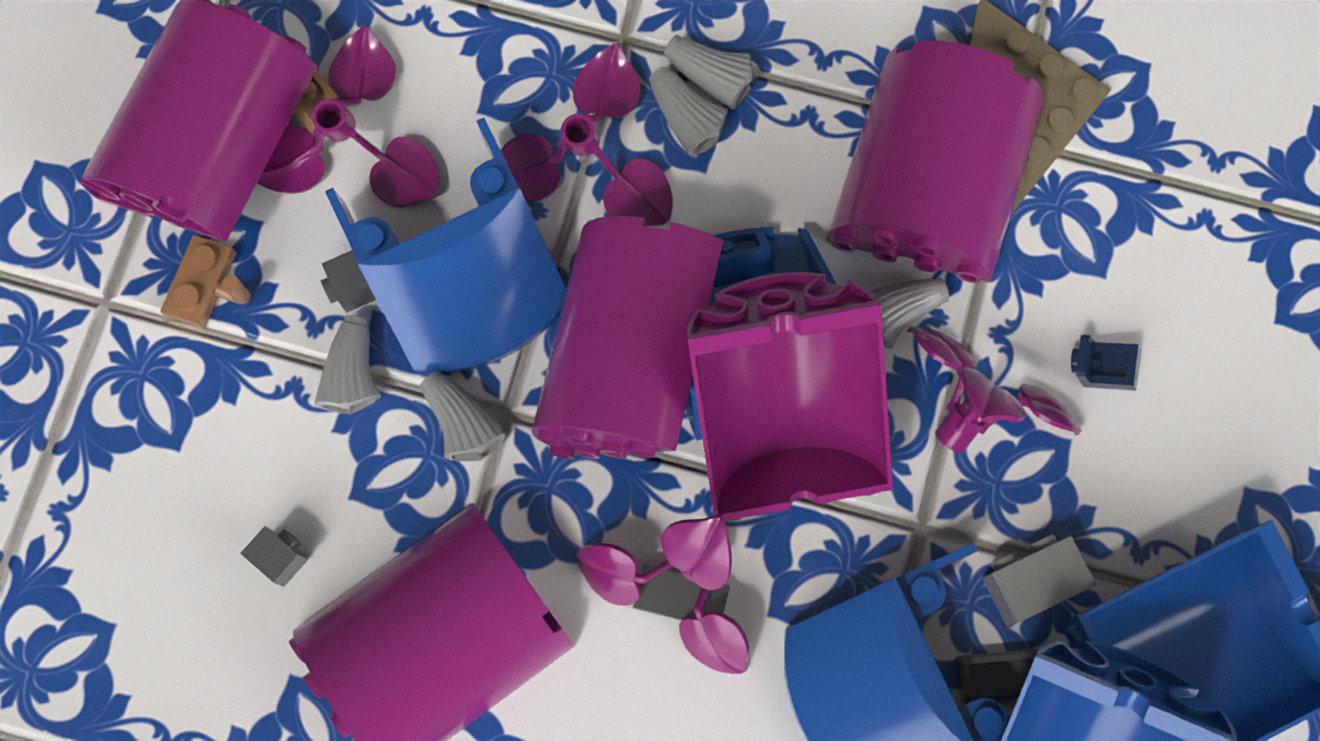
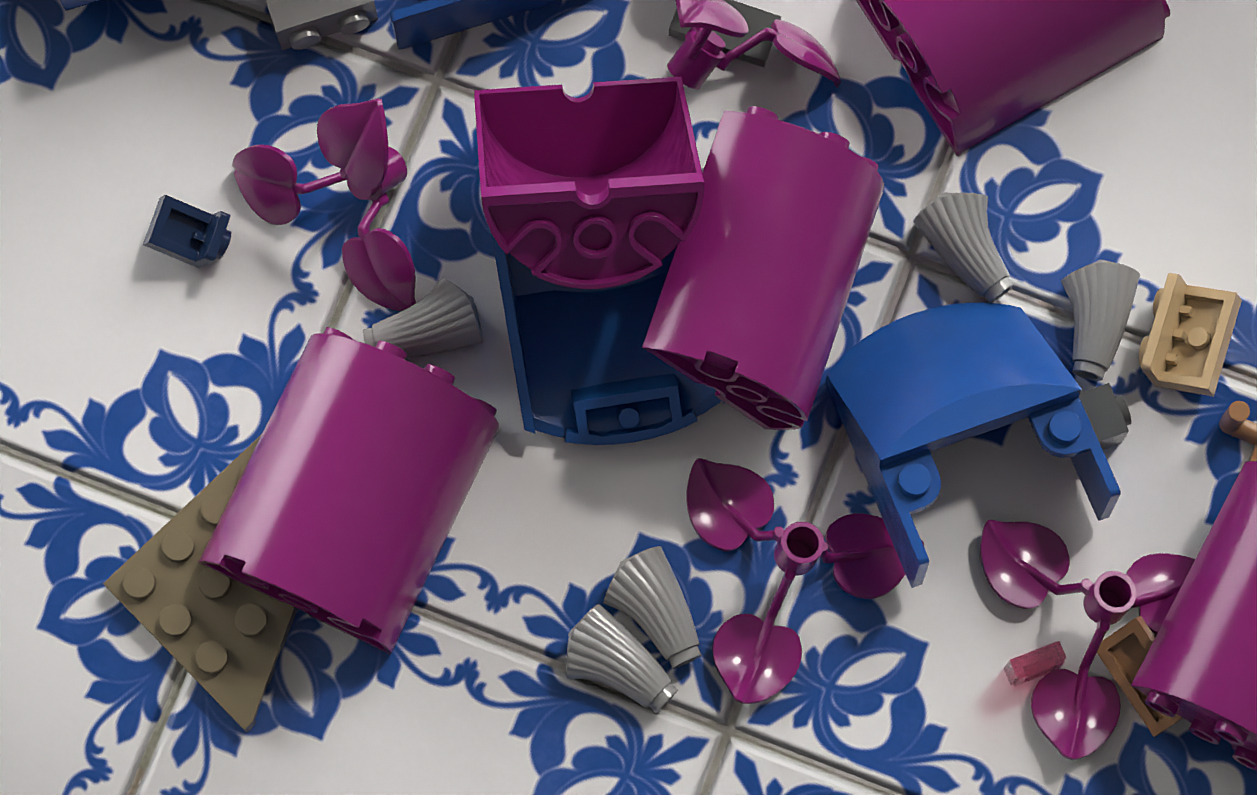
camera: 170 degrees left, 0 degrees up
(272, 356) = (1188, 336): none -> tan bracket
(275, 555) = (1185, 107): dark grey plate -> none
(393, 93) = (1035, 664): none -> clear pink tile

